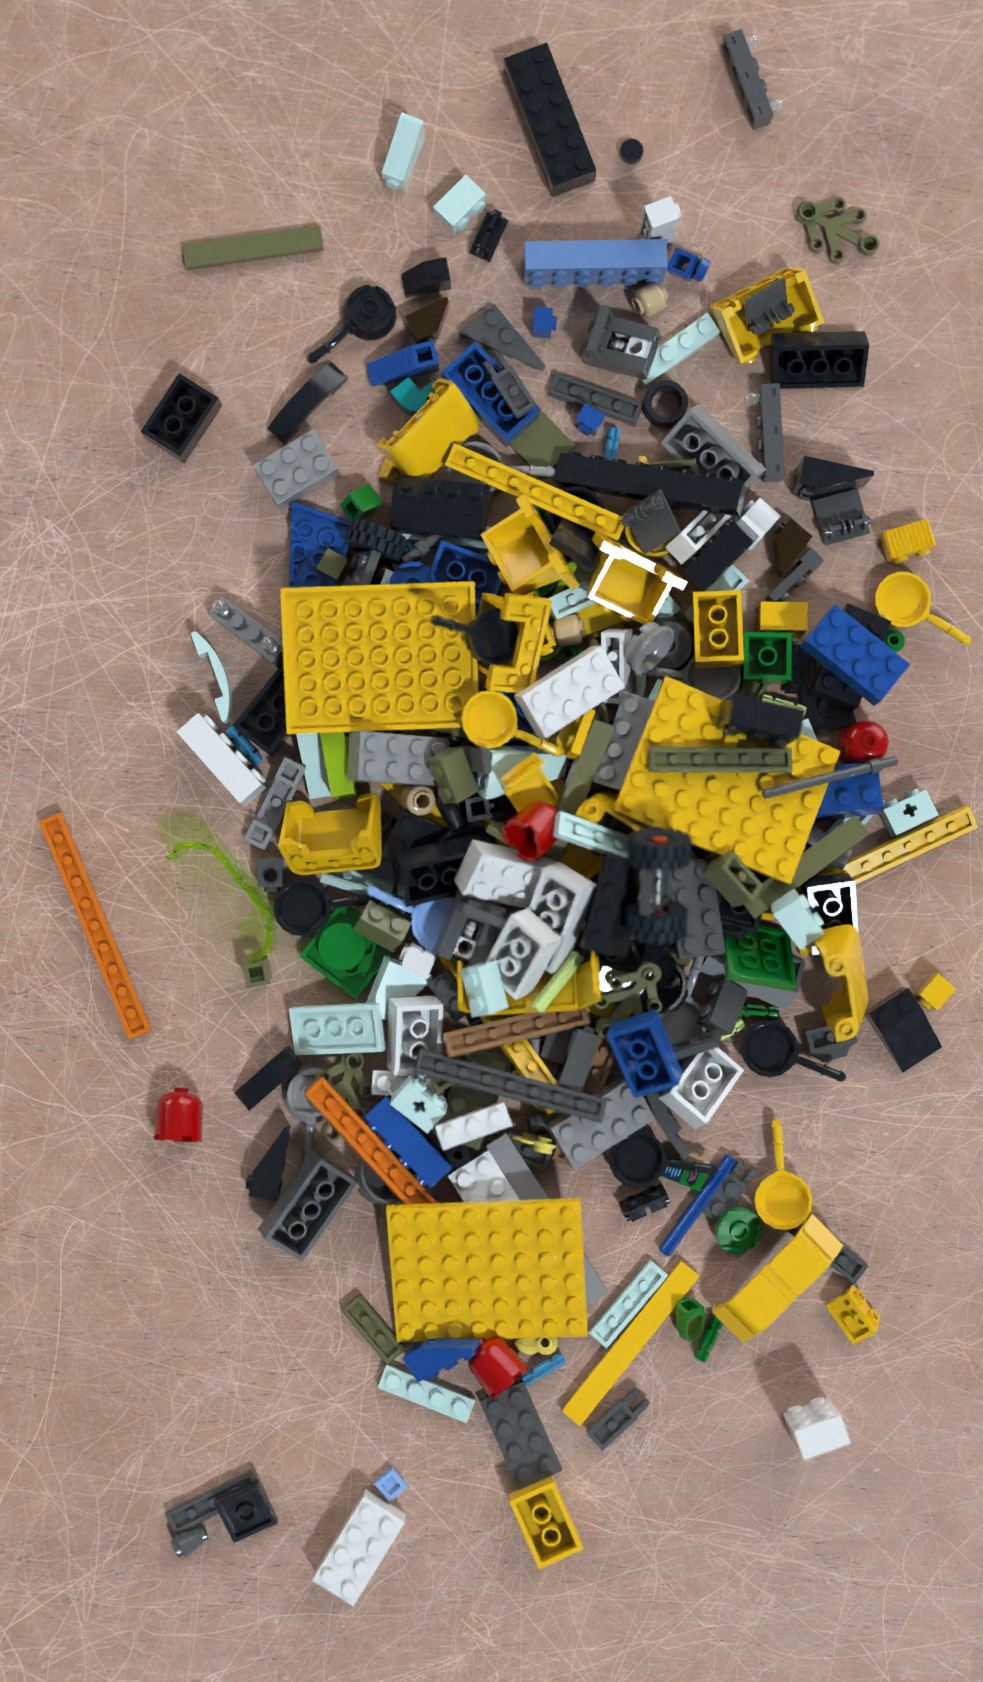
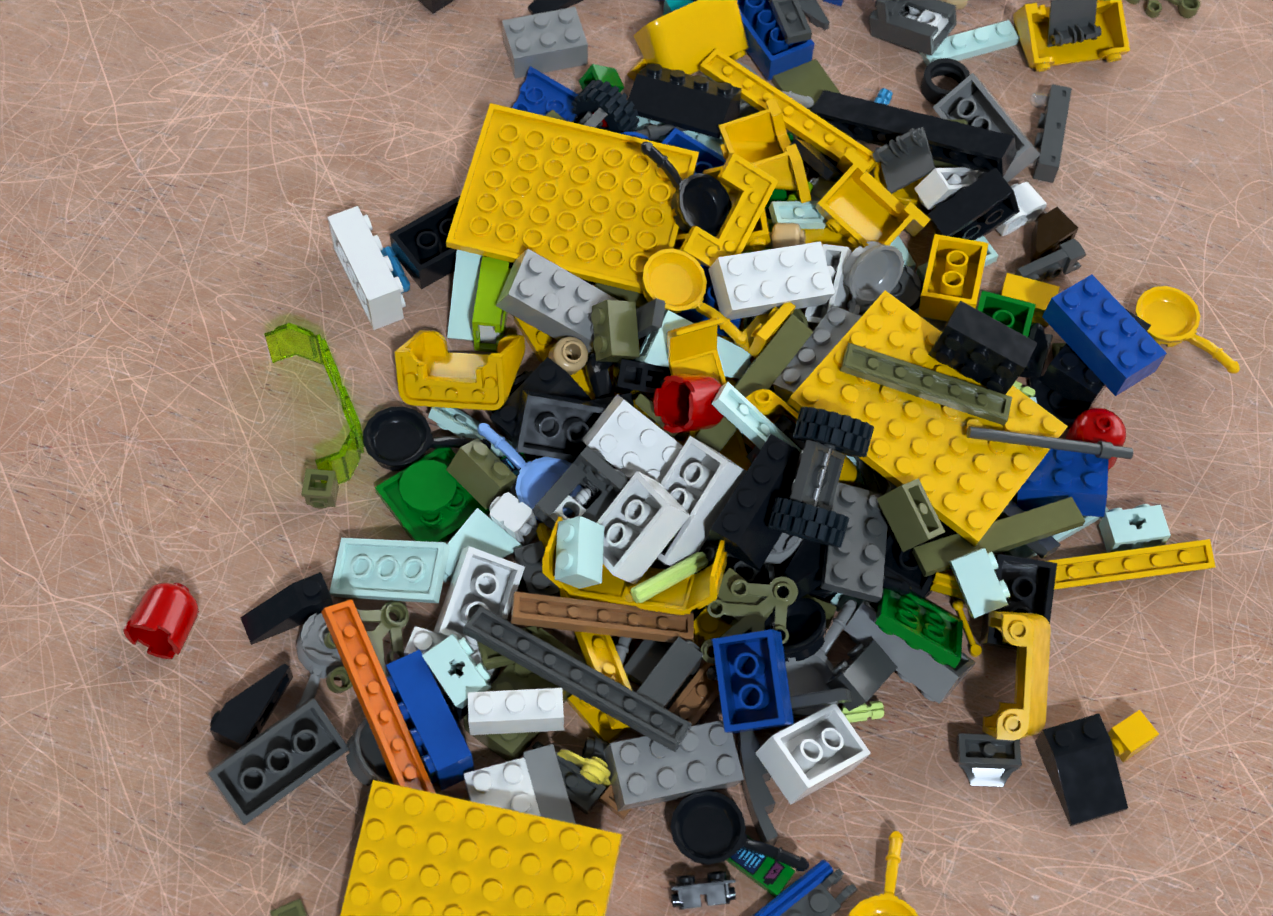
camera: 15 degrees right, 25 degrees down
(95, 926) = (157, 401): orange plate -> none
(223, 703) = (390, 219): light aqua slope -> none
(248, 630) = (438, 155): dark grey piece -> none
(270, 863) = (373, 386): dark grey brick -> none
(273, 808) = (423, 316): light grey slope -> none
(458, 1162) = (485, 753): black brick -> none
(589, 420) = (862, 75): blue plate -> none
(605, 401) = (873, 64): dark grey tile -> none
(759, 1011) = (902, 700): green axle -> none
(772, 1049) = (913, 745): black piece -> none
(819, 359) = (1118, 85): black slope -> none
(824, 478) = (1108, 181): black slope -> none
(841, 517) = (1113, 227): dark grey hinge -> none
(907, 541) = (1182, 263): yellow brick -> none

